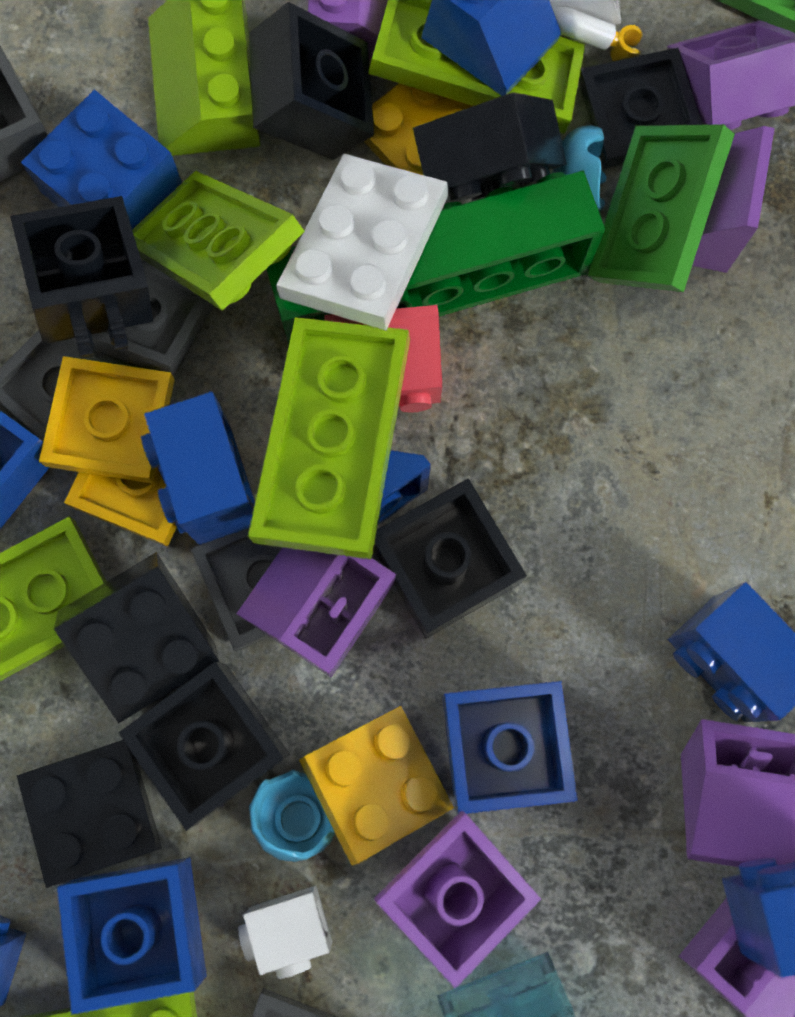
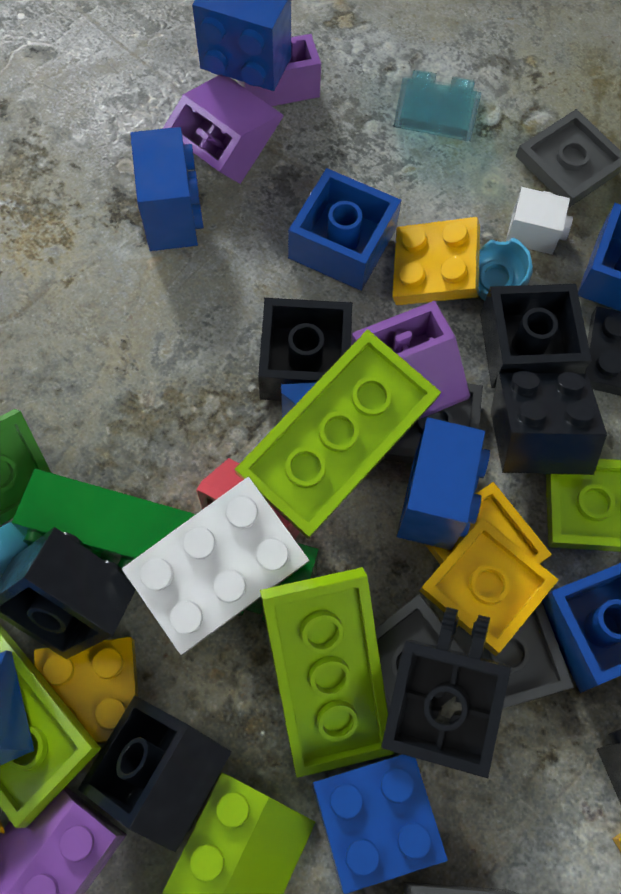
camera: 150 degrees left, 10 degrees down
(457, 899) = (429, 165): medium lavender slope -> none

